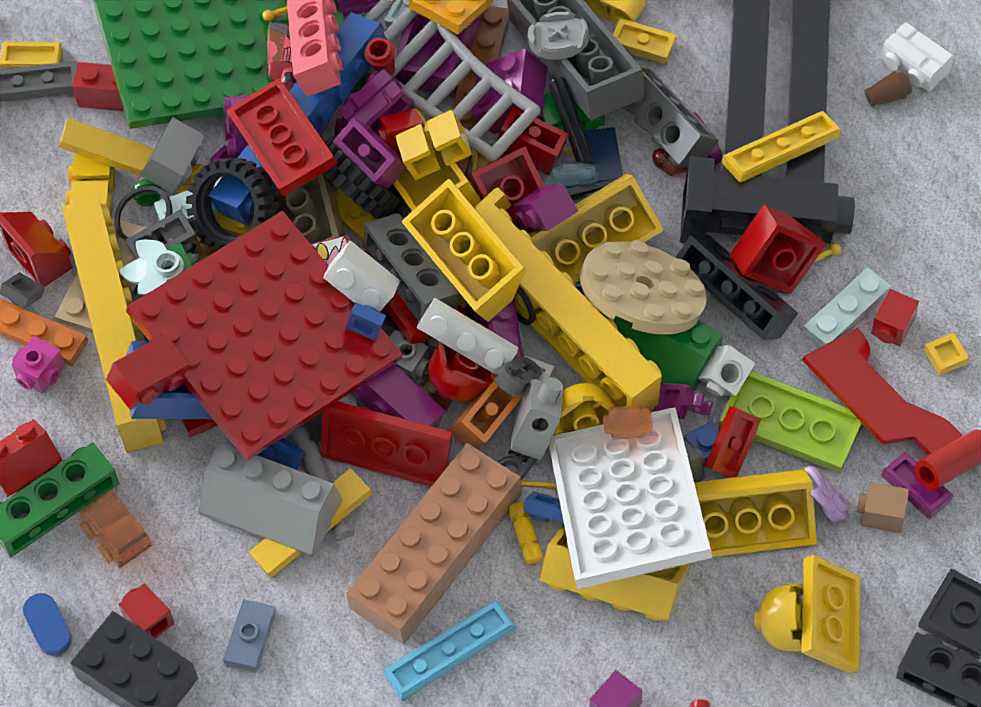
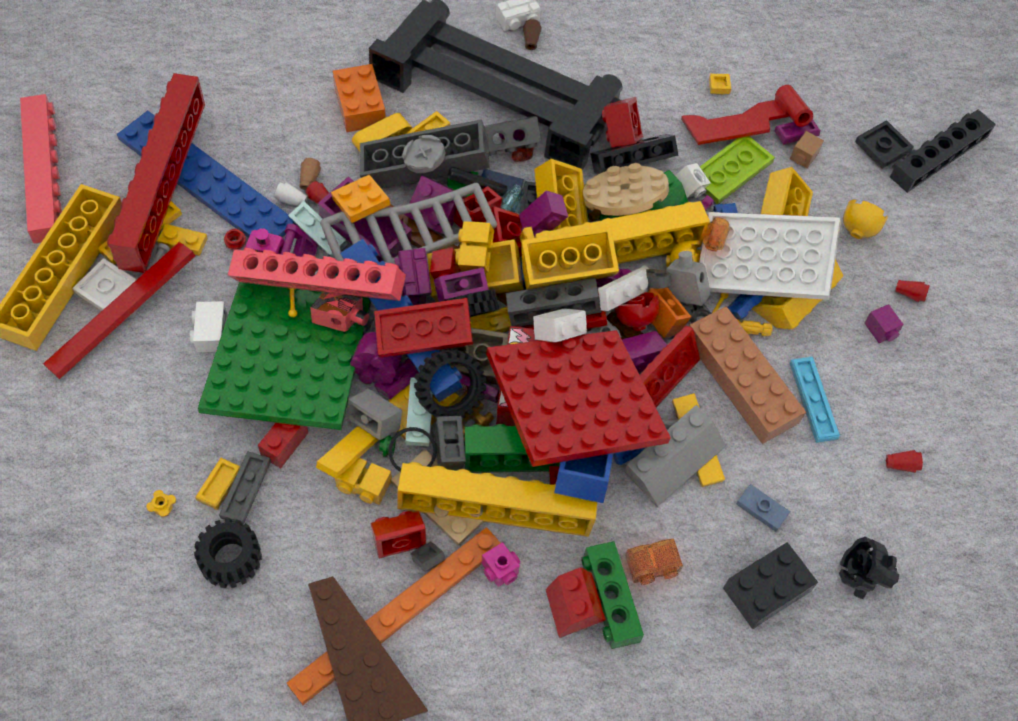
camera: 75 degrees left, 0 degrees up
(47, 624) = (707, 633): blue tile -> none
(146, 611) = (726, 563): red brick -> none
(148, 372) = (596, 466): red brick -> none
(149, 268) = (478, 452): light aqua plate -> none
(365, 321) = (597, 332): blue plate -> none
(381, 54) = (387, 248): red cone -> none
(732, 442) = (735, 191): red plate -> none
(781, 146) = (558, 89): yellow tile -> none
(831, 614) = (850, 191): yellow plate -> none
(832, 503) = (797, 167): lavender plate -> none
(847, 308) = (666, 114): light aqua plate -> none
(894, 318) = (687, 94): red brick -> none

